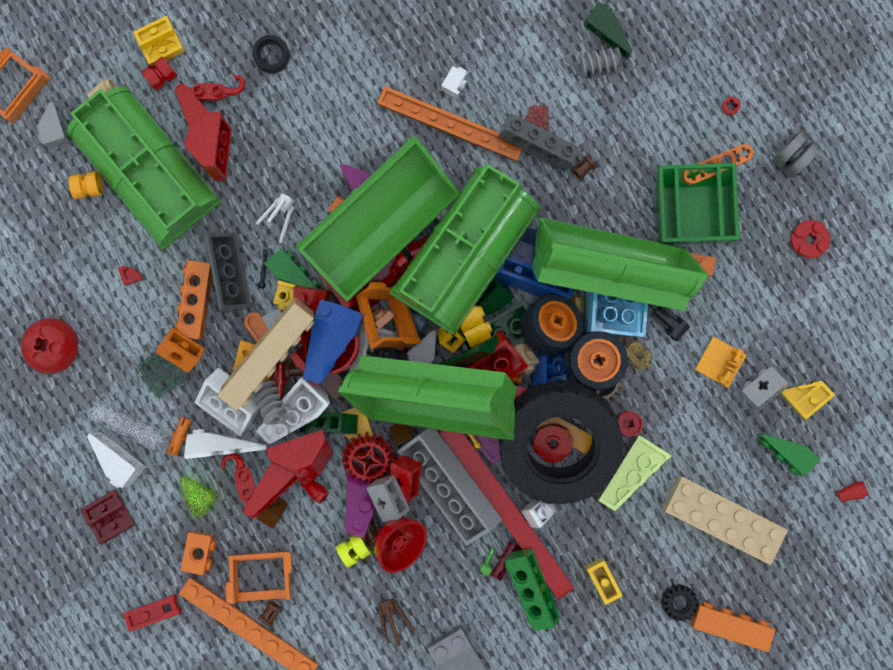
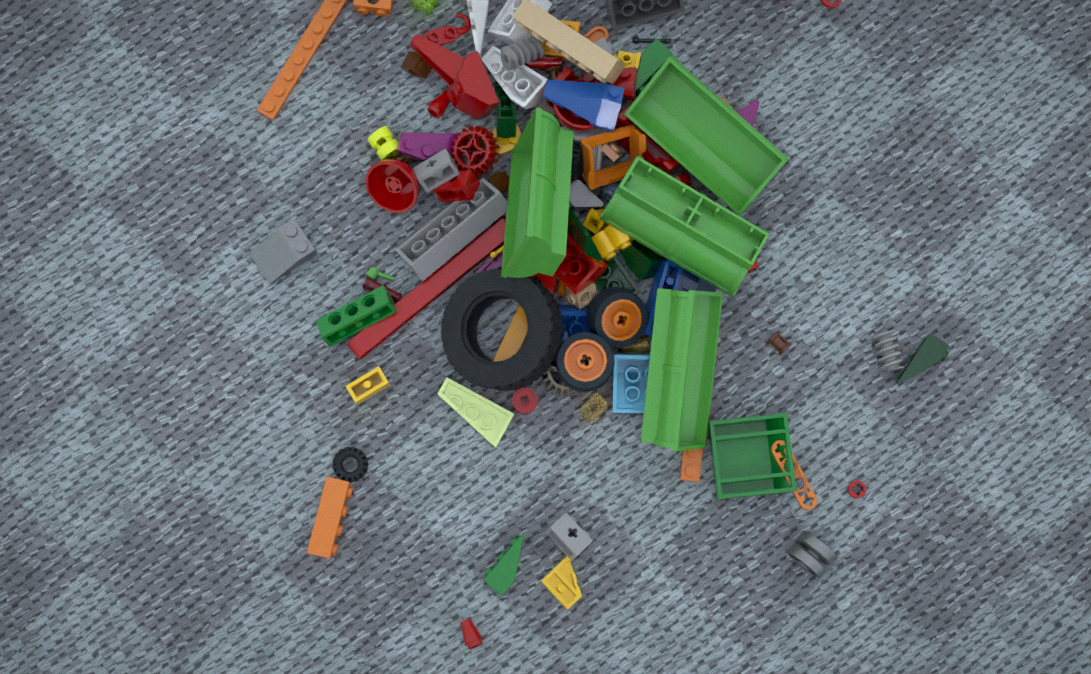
camera: 85 degrees right, 5 degrees down
(232, 587) = (342, 33): orange piece -> none
(265, 40) = (860, 44): black tyre -> none
(270, 613) = (326, 72): reddish brown bush -> none
(280, 204) = (717, 52): white plant -> none
(387, 609) = (328, 180): reddish brown plant -> none
(447, 123) = (811, 209): orange plate -> none
(454, 82) = (854, 210): white brick -> none
(538, 116) = (822, 293): clear red brick -> none
(538, 142) = (800, 293): dark grey brick -> none
(538, 513) = (431, 317): white slope -> none
(560, 434) = (493, 322): red plate -> none
(673, 325) = (627, 441): black piece -> none
(720, 362) = (593, 493): light orange hinge -> none
(724, 519) = (435, 503): tan brick -> none
(816, 230) = (735, 584): red plate -> none

